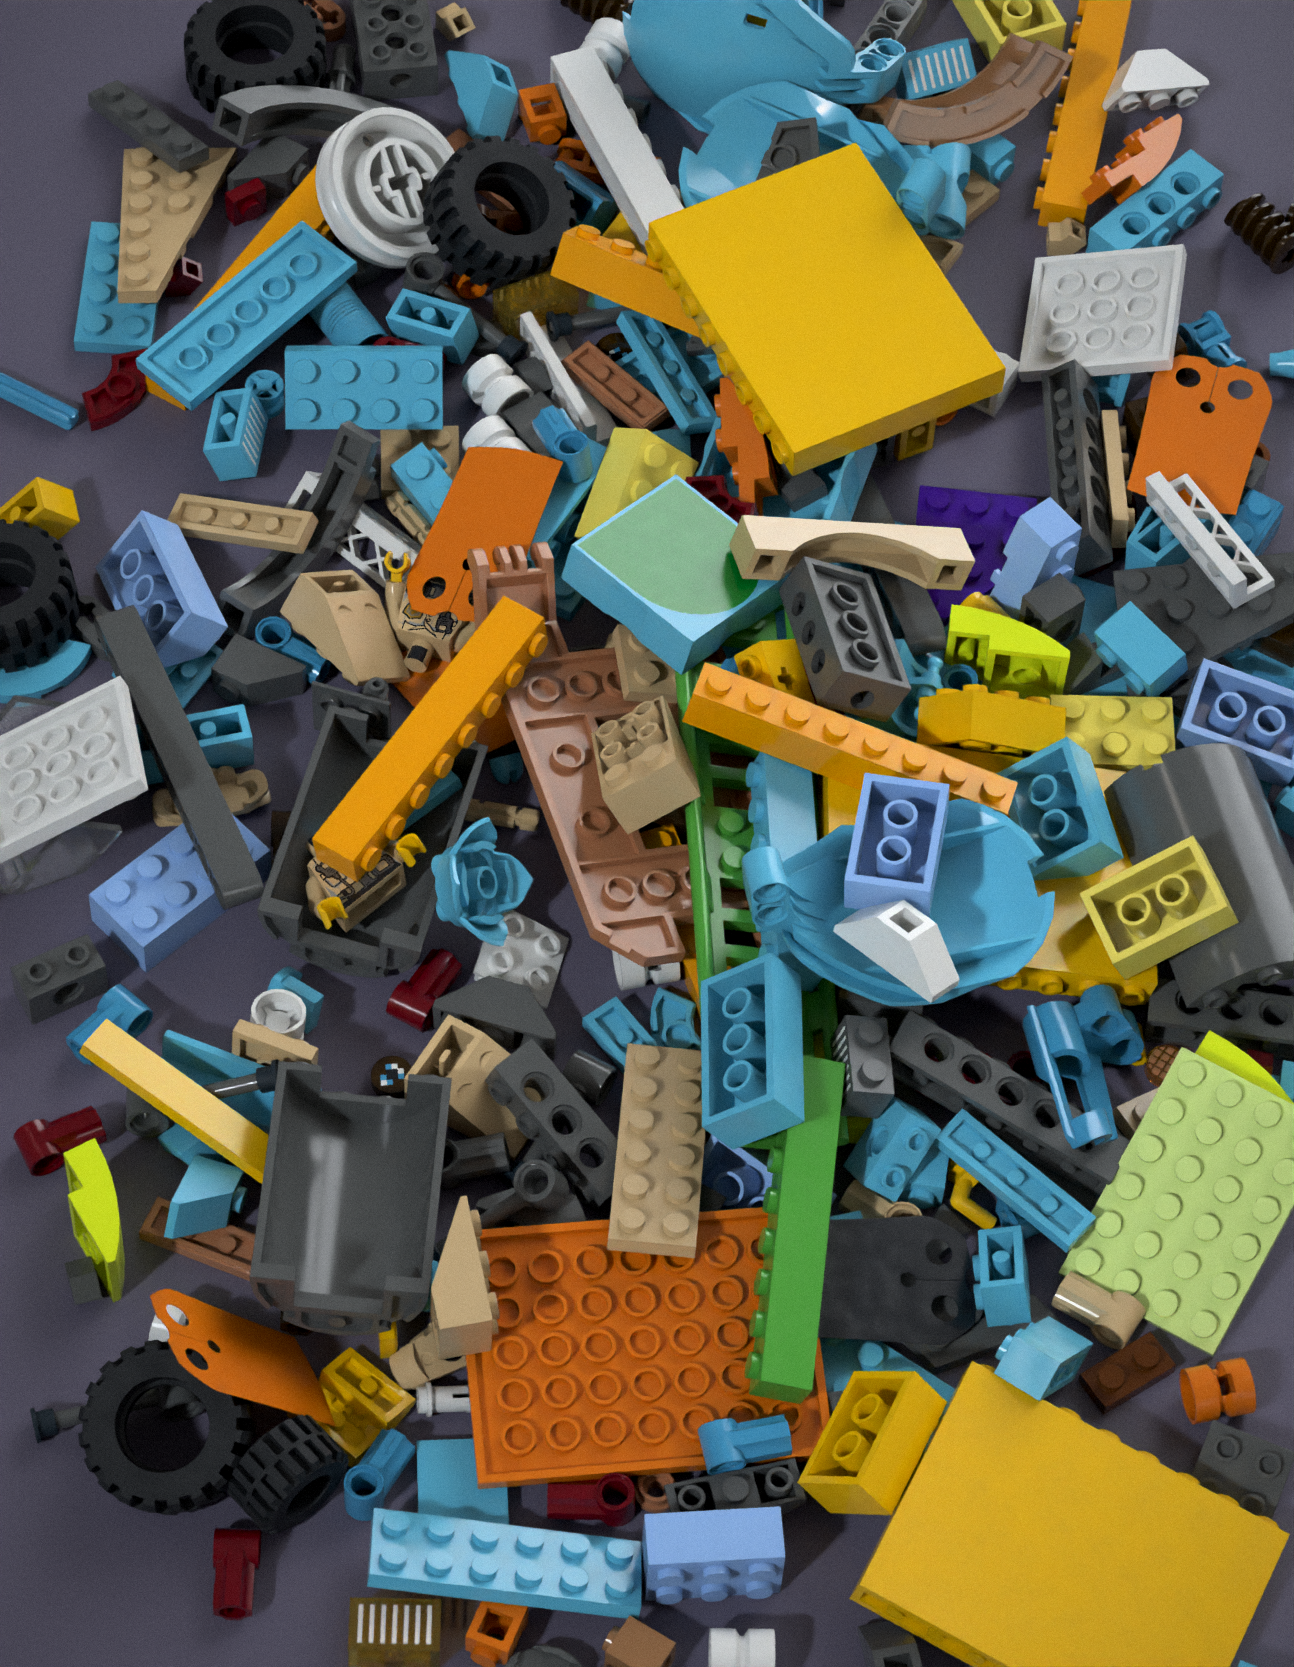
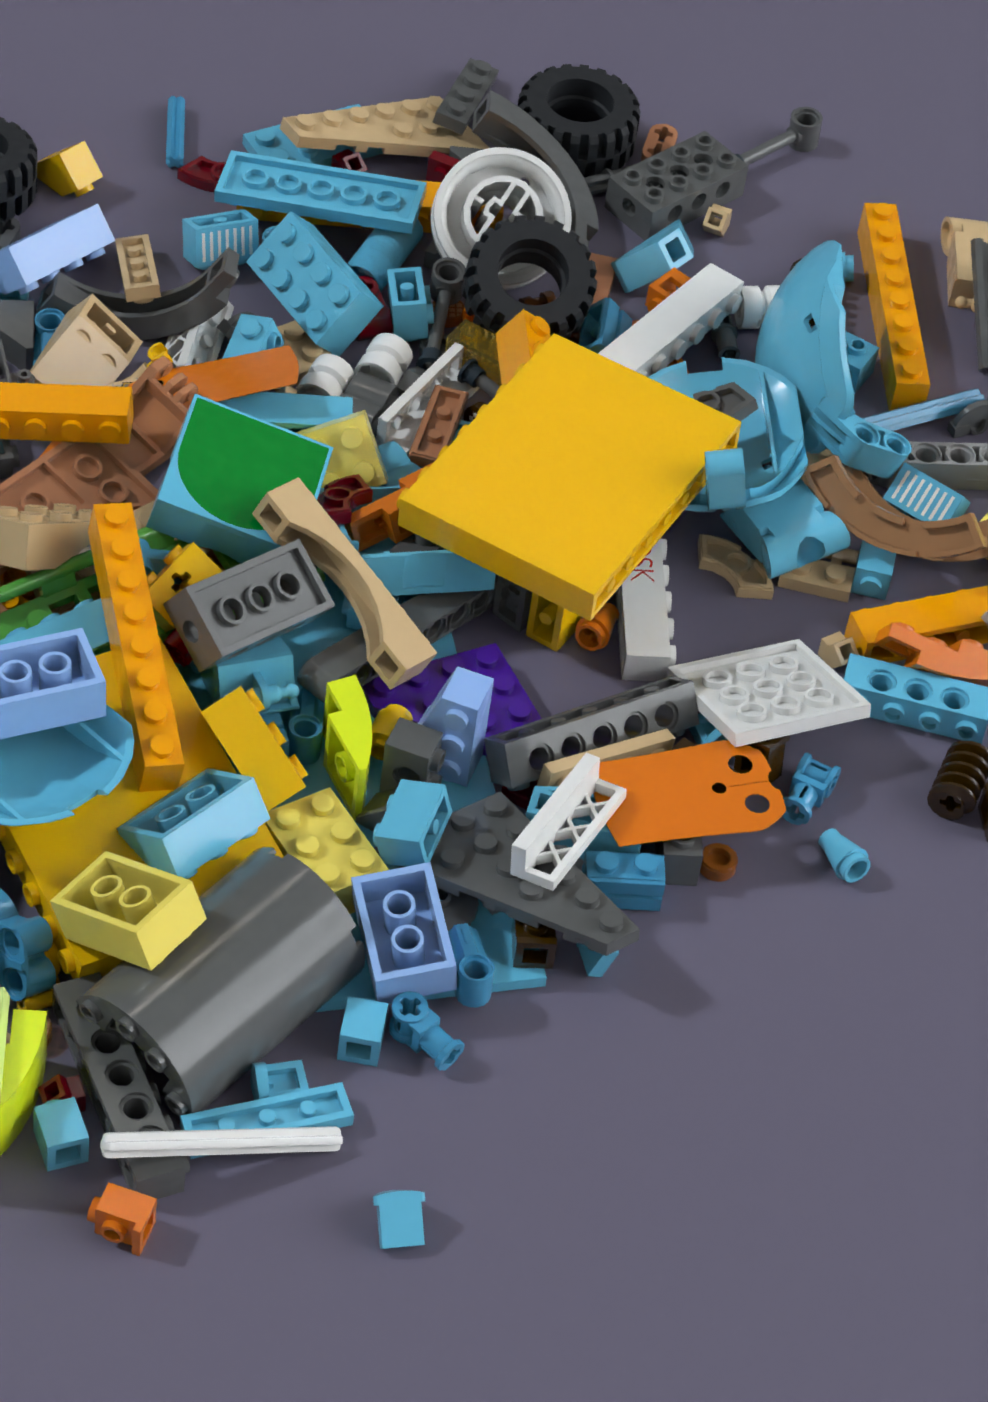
camera: 55 degrees right, 10 degrees down
(564, 444) = (323, 387): dark azure piece -> none

